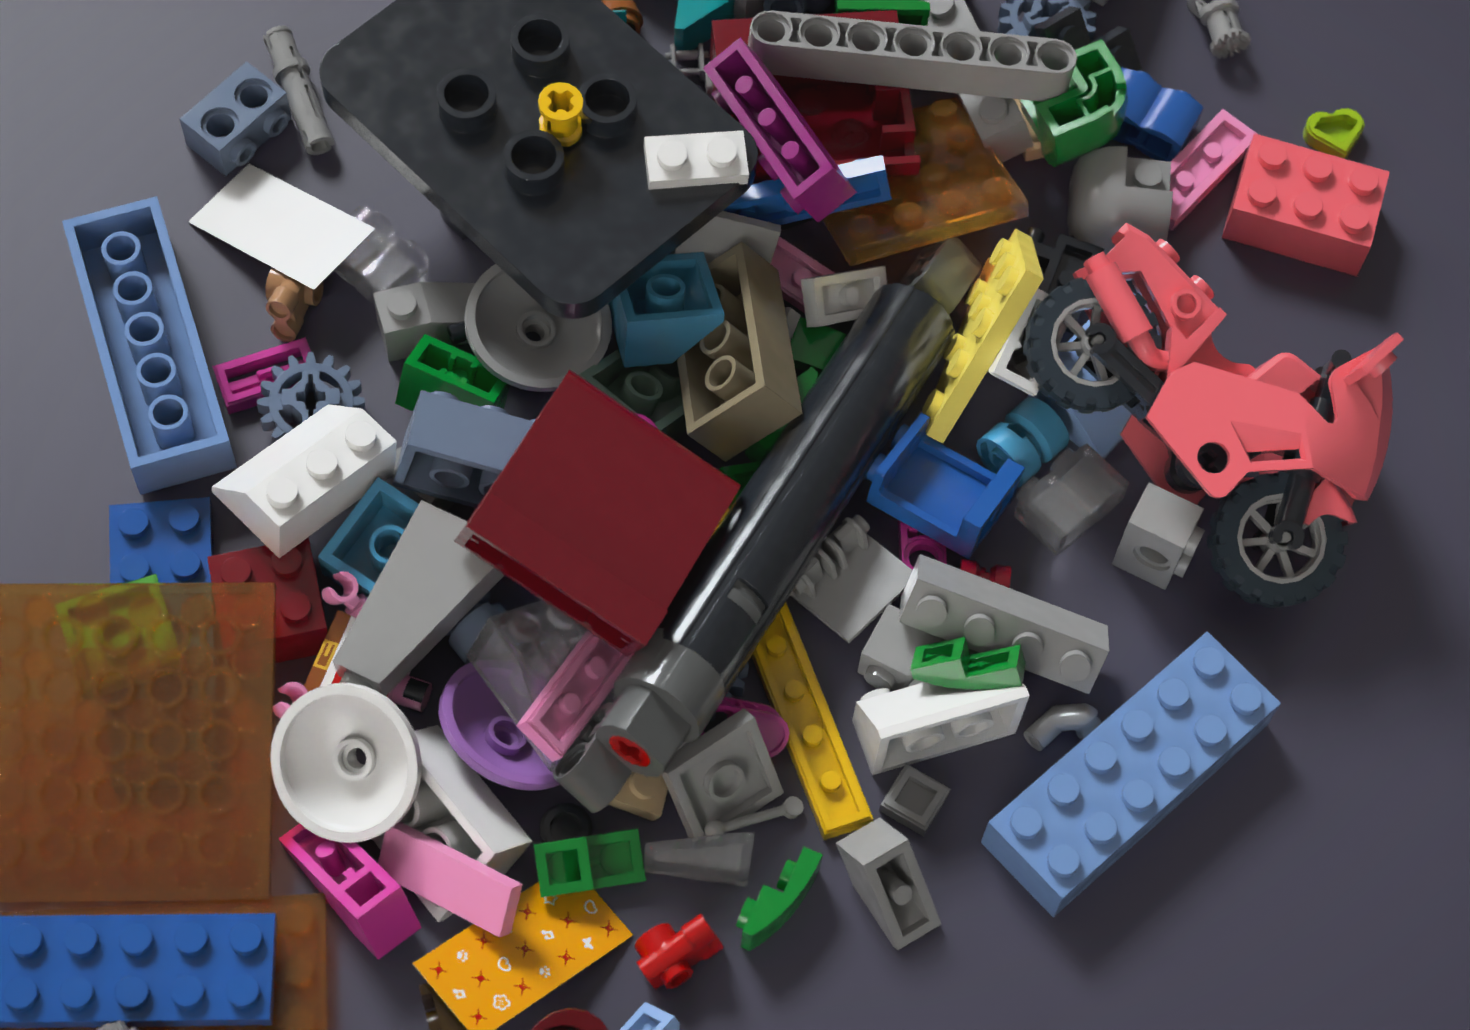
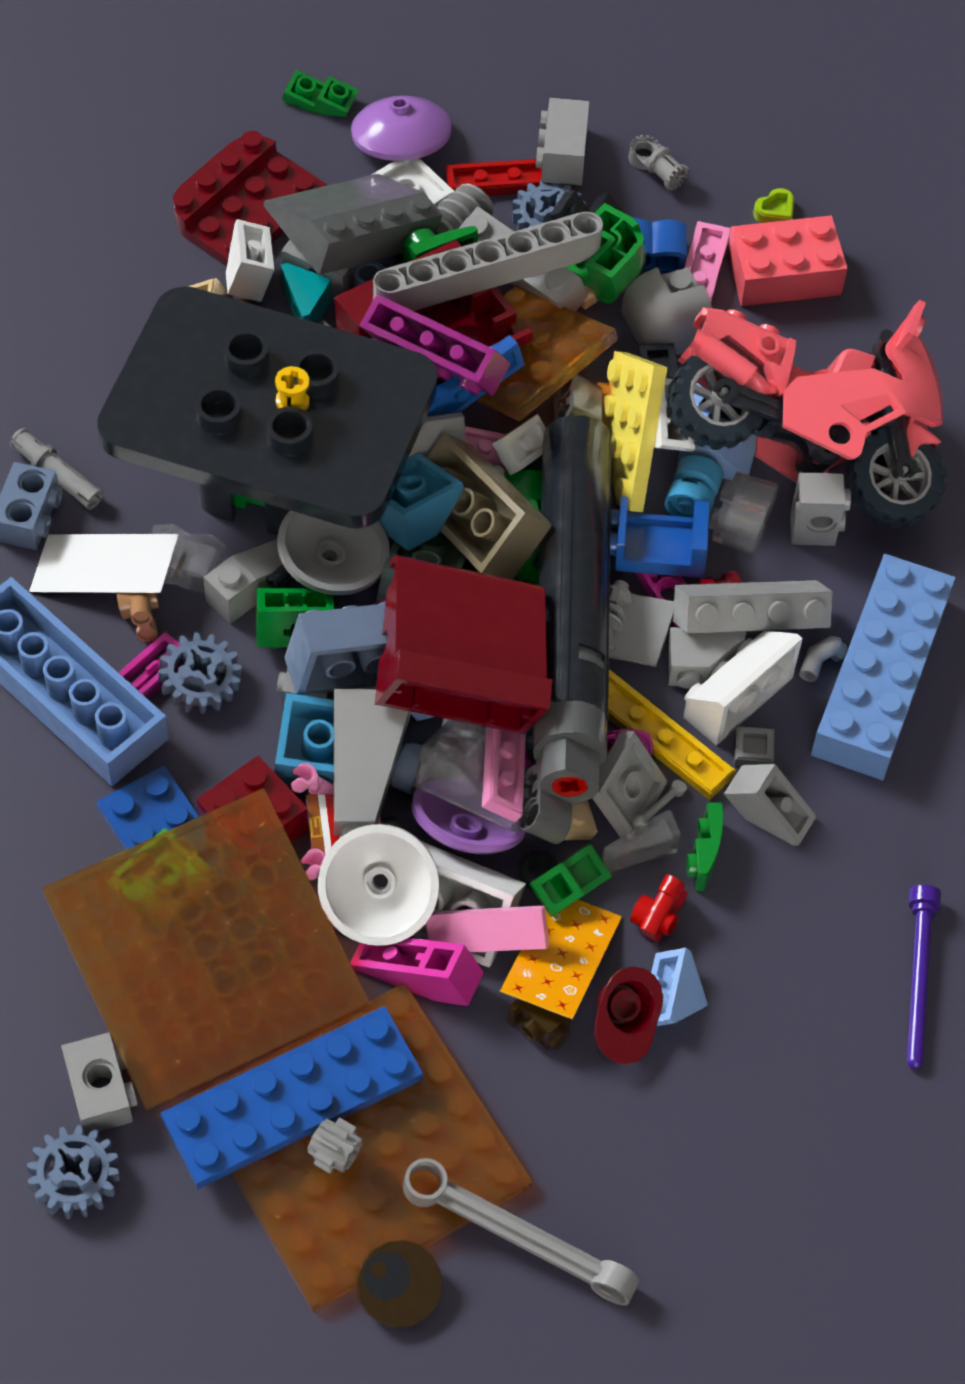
camera: 25 degrees left, 5 degrees down
(309, 476) = (237, 711): white slope -> none
(696, 159) = (397, 384): white plate -> none
(953, 666) = (738, 645): green slope -> none

